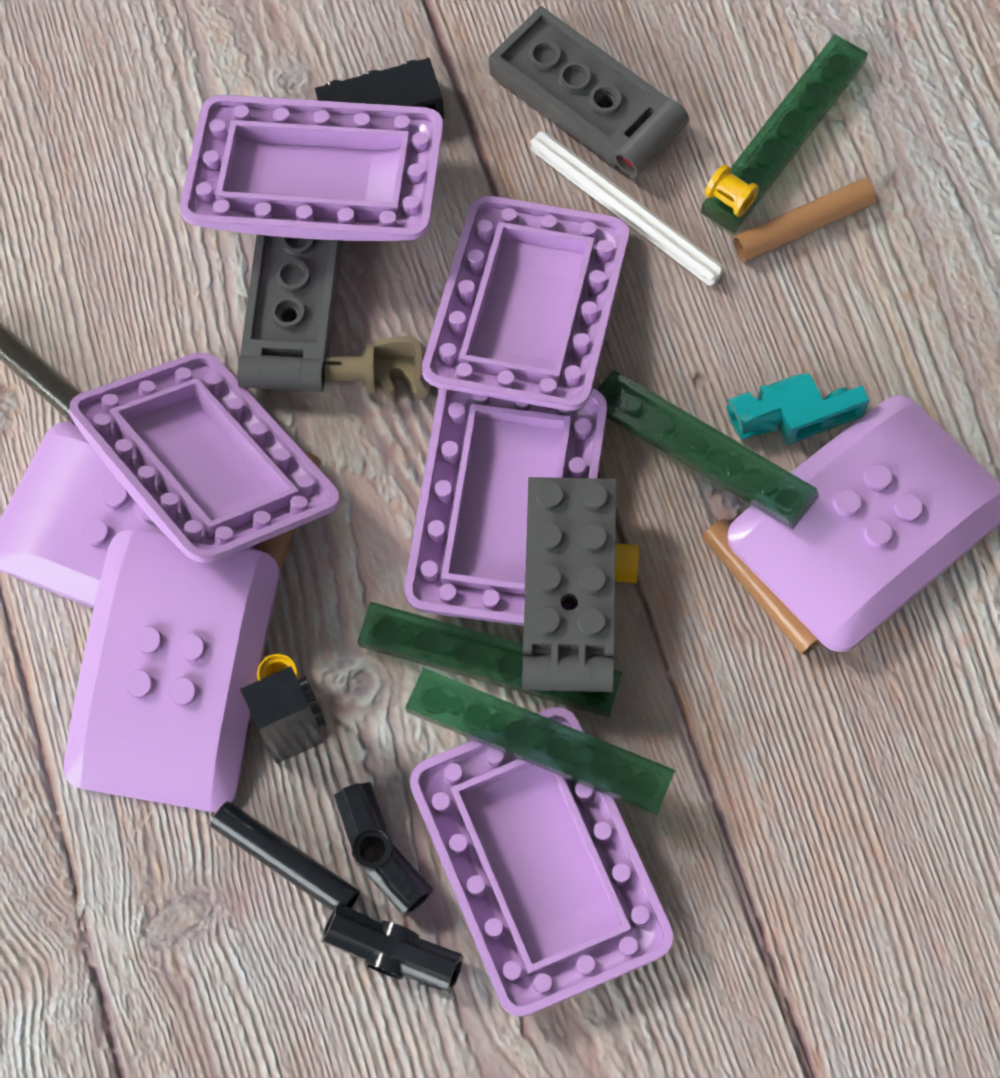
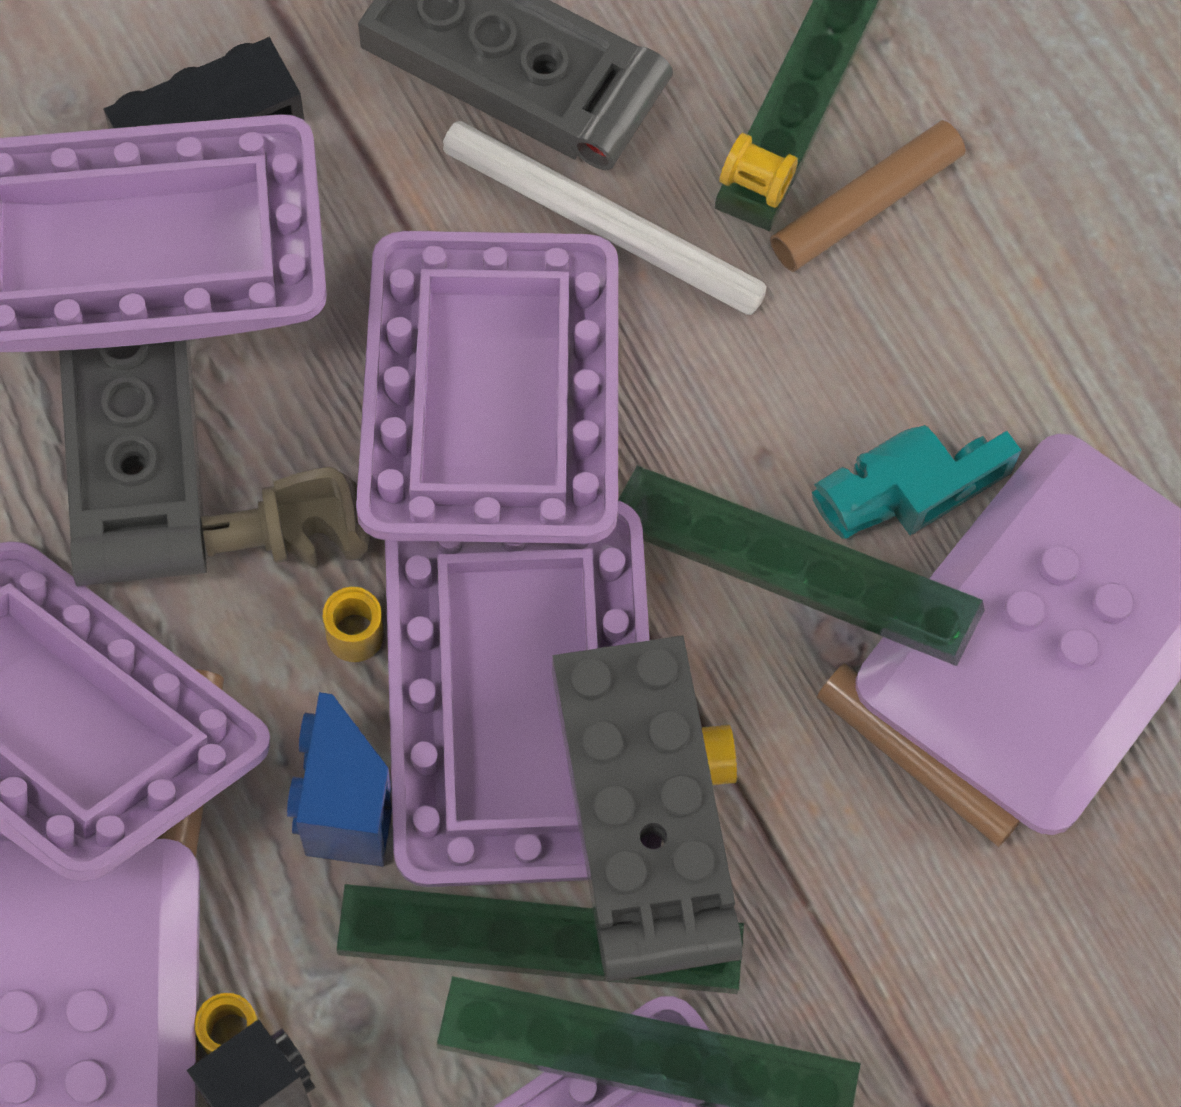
camera: 20 degrees left, 0 degrees up
(378, 542) = (346, 790): none -> blue slope
(403, 427) = (353, 602): none -> yellow beam

